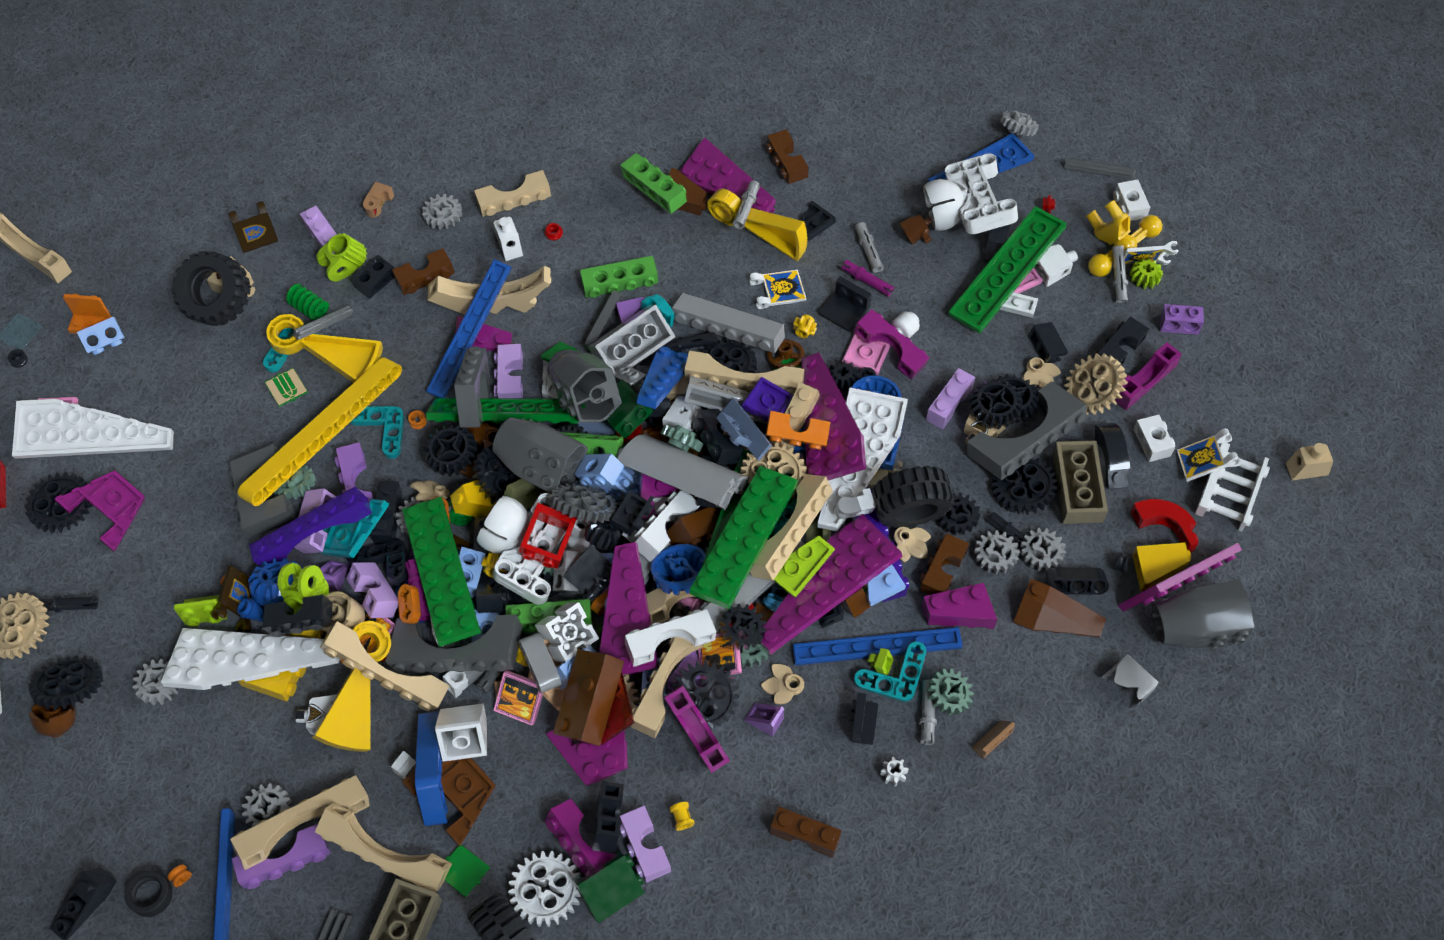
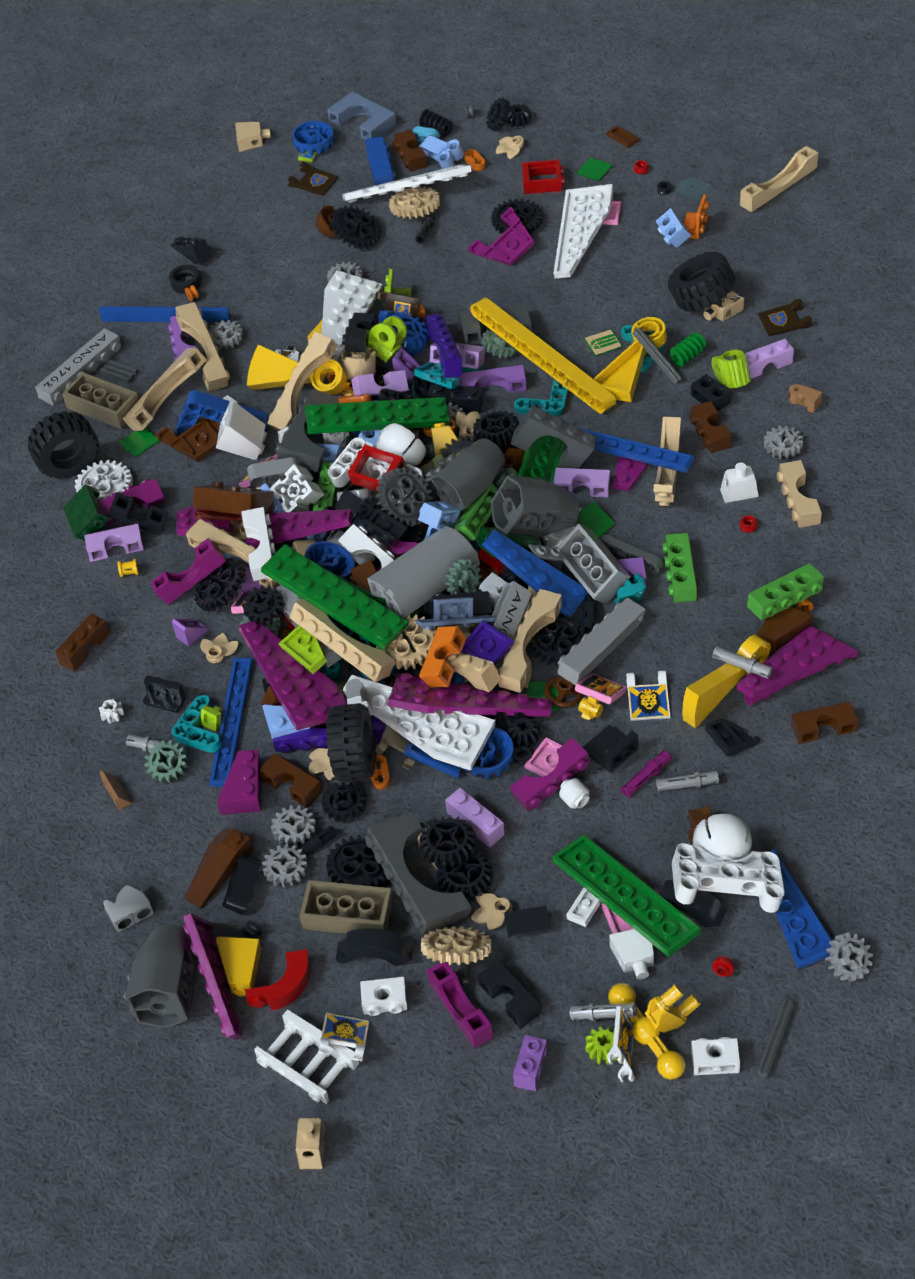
camera: 105 degrees right, 10 degrees down
(786, 314) = (600, 688): none -> tile

